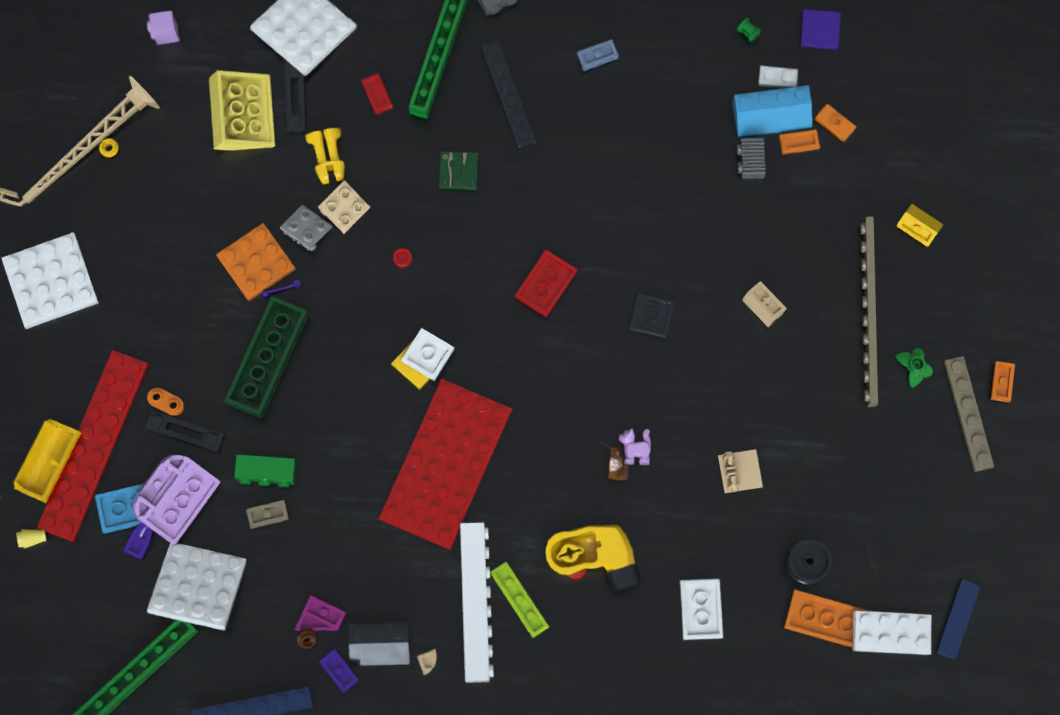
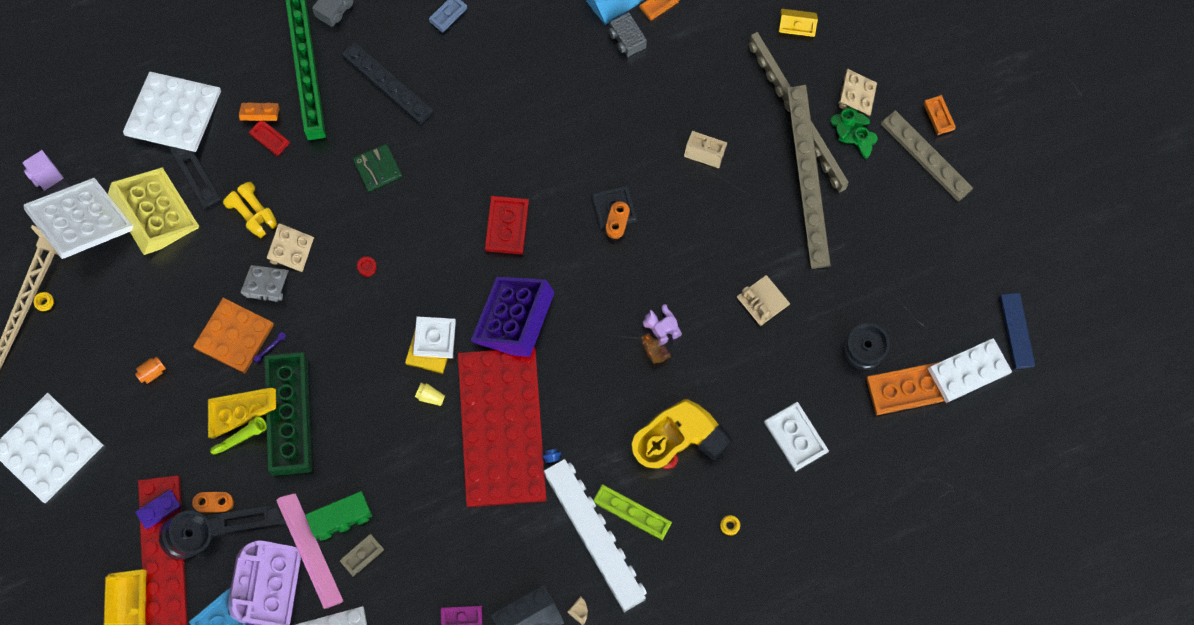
camera: 30 degrees left, 5 degrees down
(116, 385) = (158, 509): none -> dark purple plate
(128, 419) = (185, 535): none -> black wheel
(168, 257) = (149, 370): none -> orange brick
(173, 88) = (78, 217): none -> white plate
(223, 331) = (235, 410): none -> yellow wing
(225, 487) = (309, 551): none -> bright pink tile
(232, 355) = (254, 427): none -> lime plant
(379, 65) = (259, 111): none -> orange plate
(397, 403) = (429, 394): none -> light yellow cone
(475, 513) = (551, 456): none -> blue plate
(507, 370) = (513, 315): none -> dark purple slope
(605, 656) = (734, 521): none -> yellow plate
(647, 329) = (617, 218): none -> orange plate
(844, 378) = (809, 177): none -> dark tan plate
(913, 342) = (847, 119): none -> green animal
(937, 321) = (857, 92): none -> tan hinge

